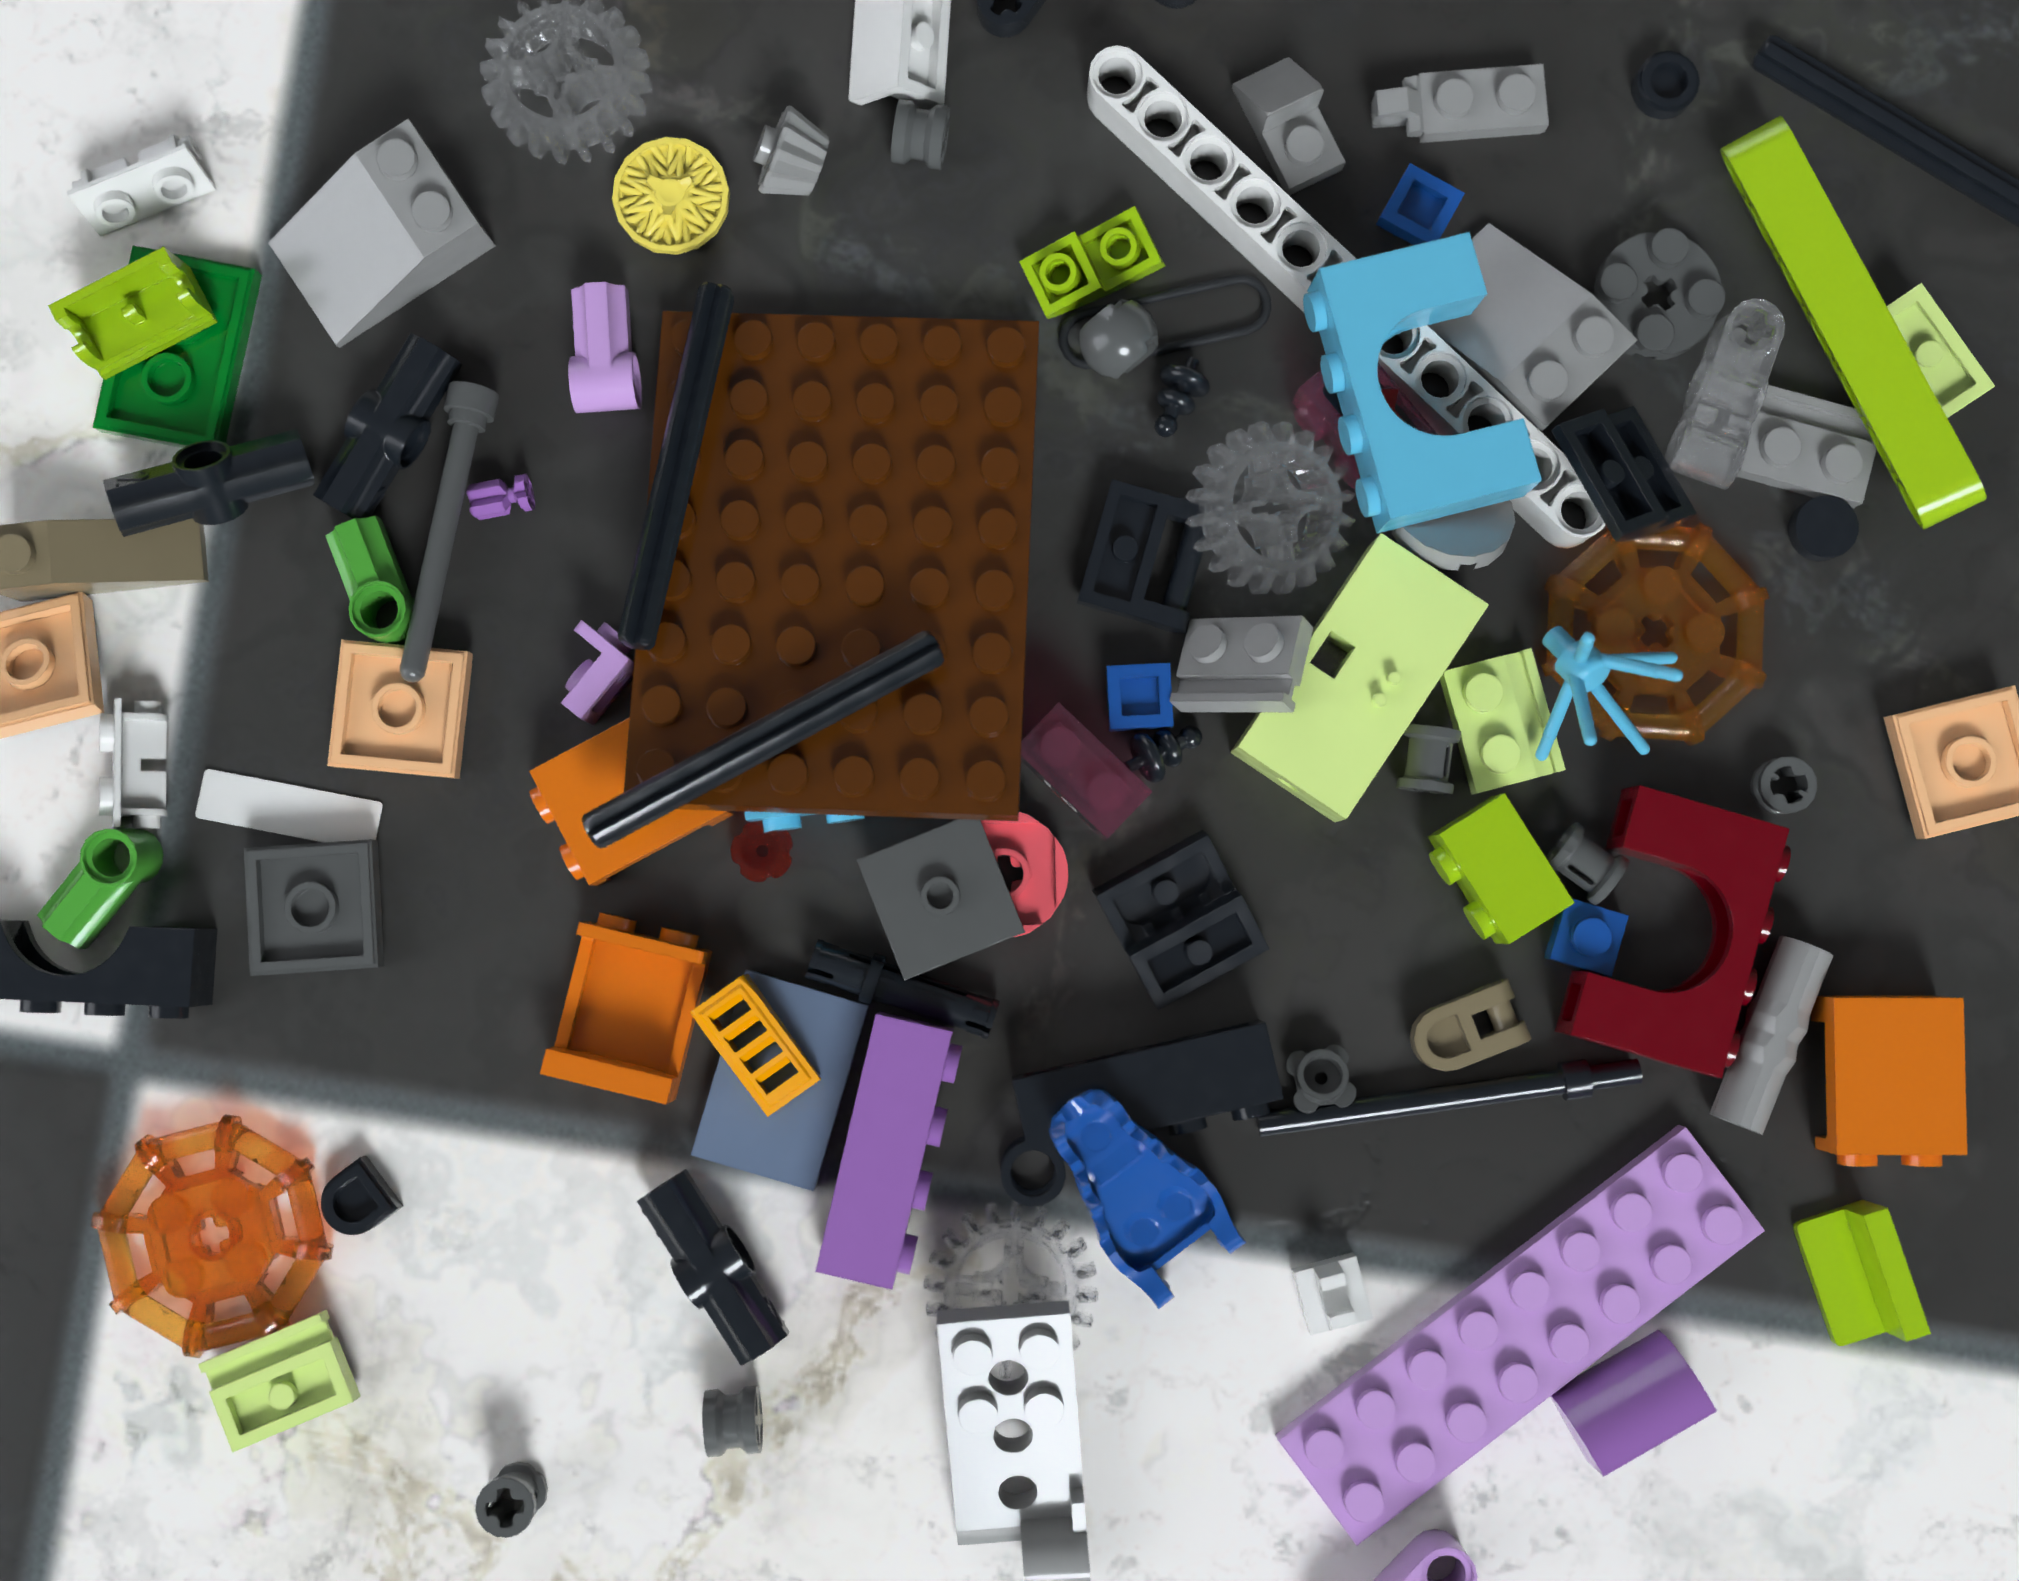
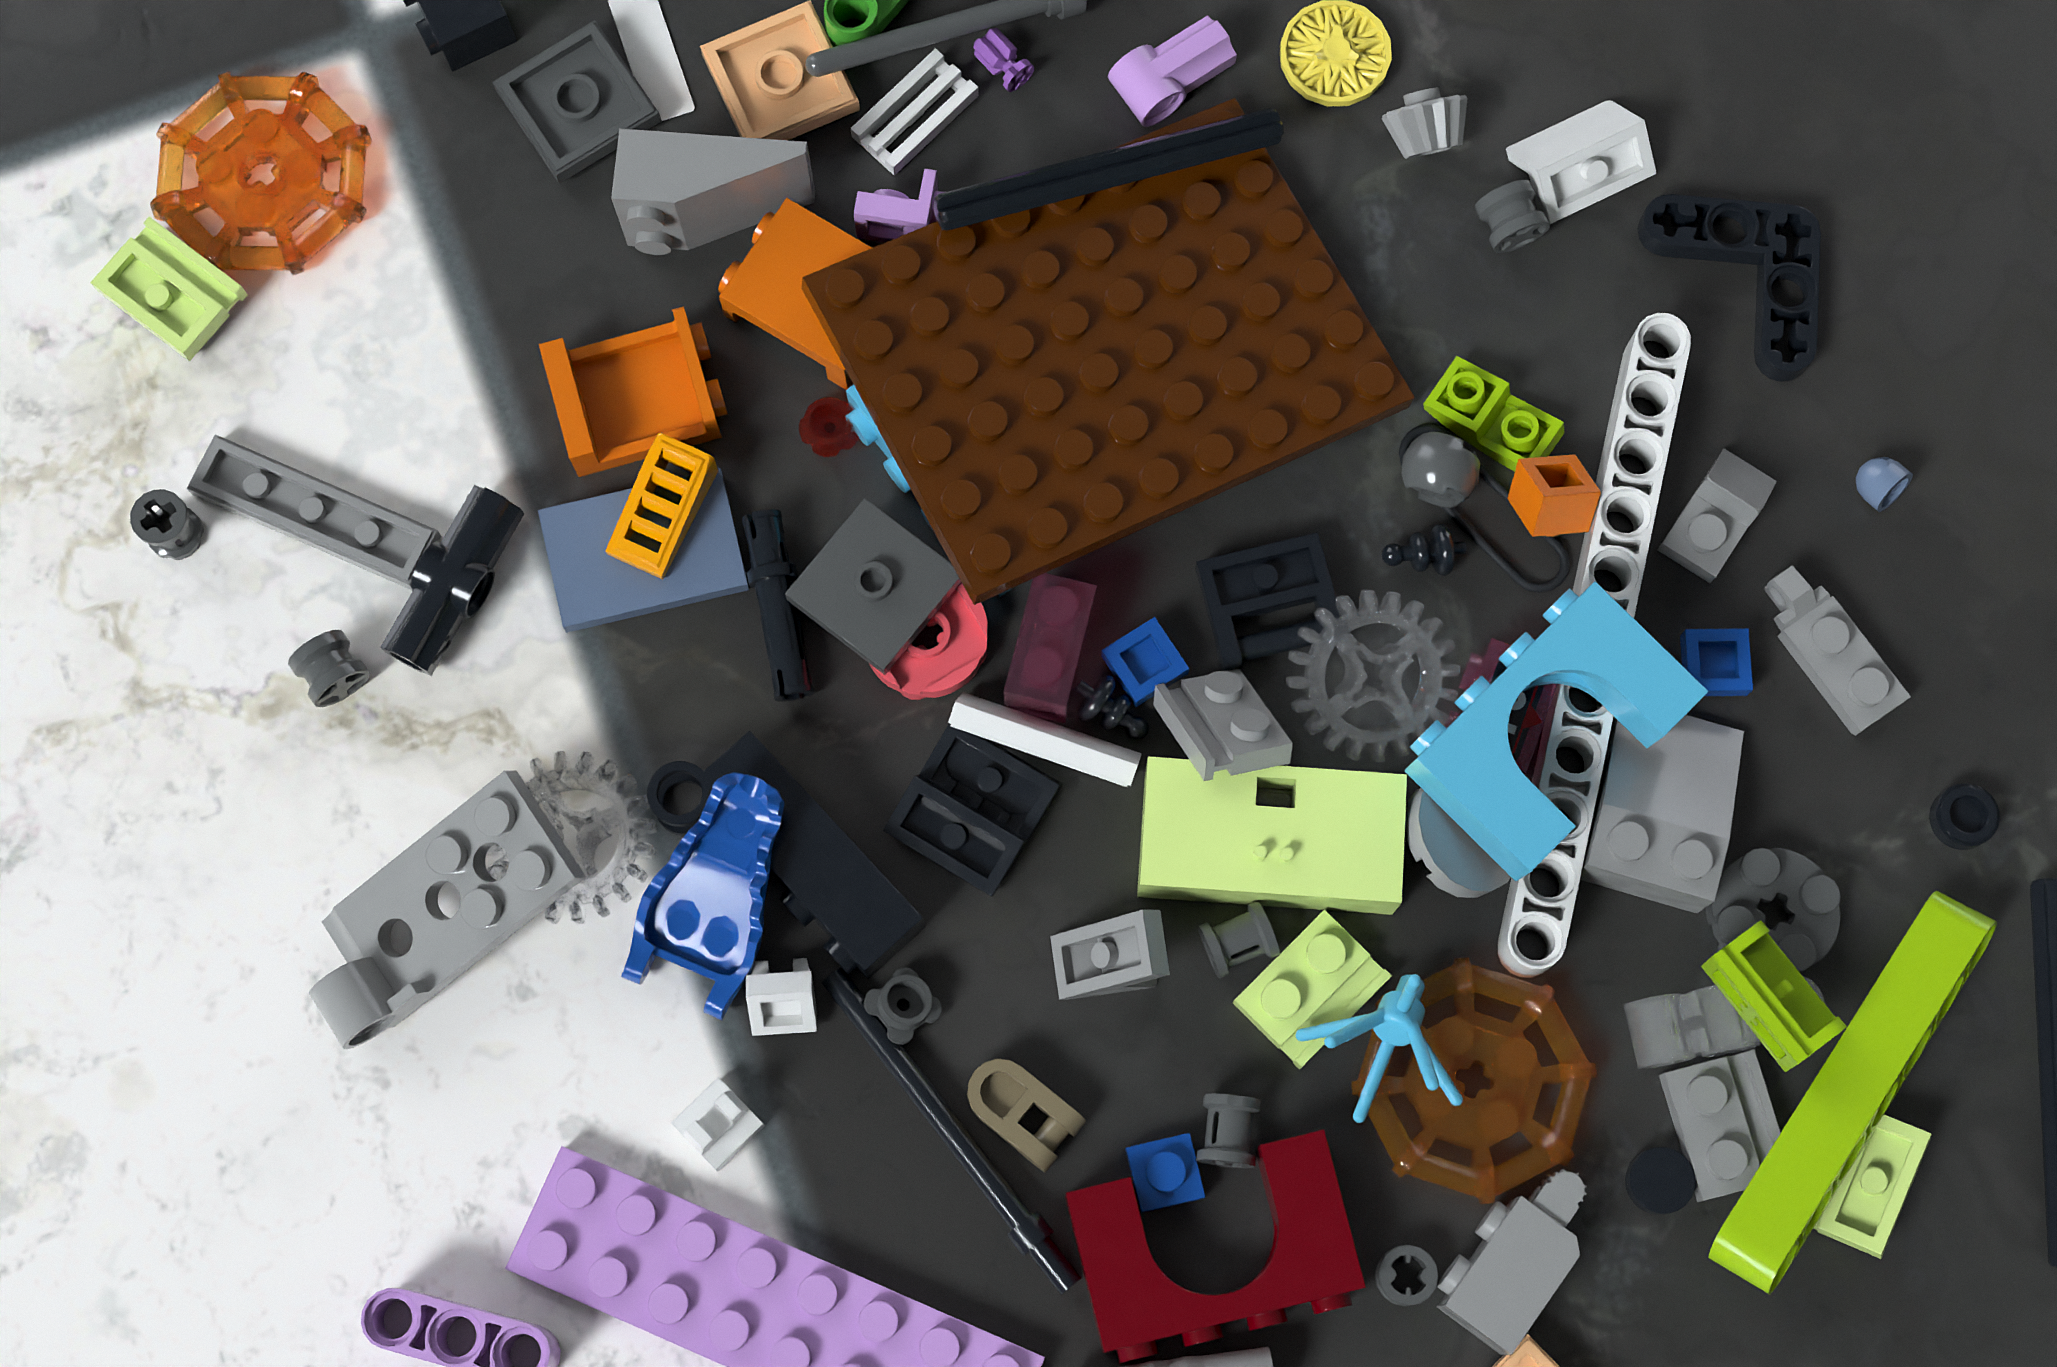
camera: 60 degrees right, 10 degrees down
(358, 1199) = (354, 269): black tile -> none
(473, 845) = (702, 187): none -> light grey slope
(490, 554) = (930, 66): none -> white tile
(571, 1357) = (311, 510): none -> light grey tile
(762, 739) = (920, 354): black axle -> none
(886, 1150) = (631, 663): medium lavender brick -> none
(1161, 824) = (1044, 739): none -> white tile
(1198, 255) = (1553, 495): none -> orange plate
(1261, 1183) = (781, 1000): none -> white tile
(1384, 876) = (1111, 956): none -> light grey slope
(1498, 871) = (1177, 1054): lime brick -> none
(1624, 473) = (1590, 960): black slope -> none
(1750, 340) = (1772, 997): none -> lime hinge
(1829, 688) = (1516, 1264): none -> light grey hinge

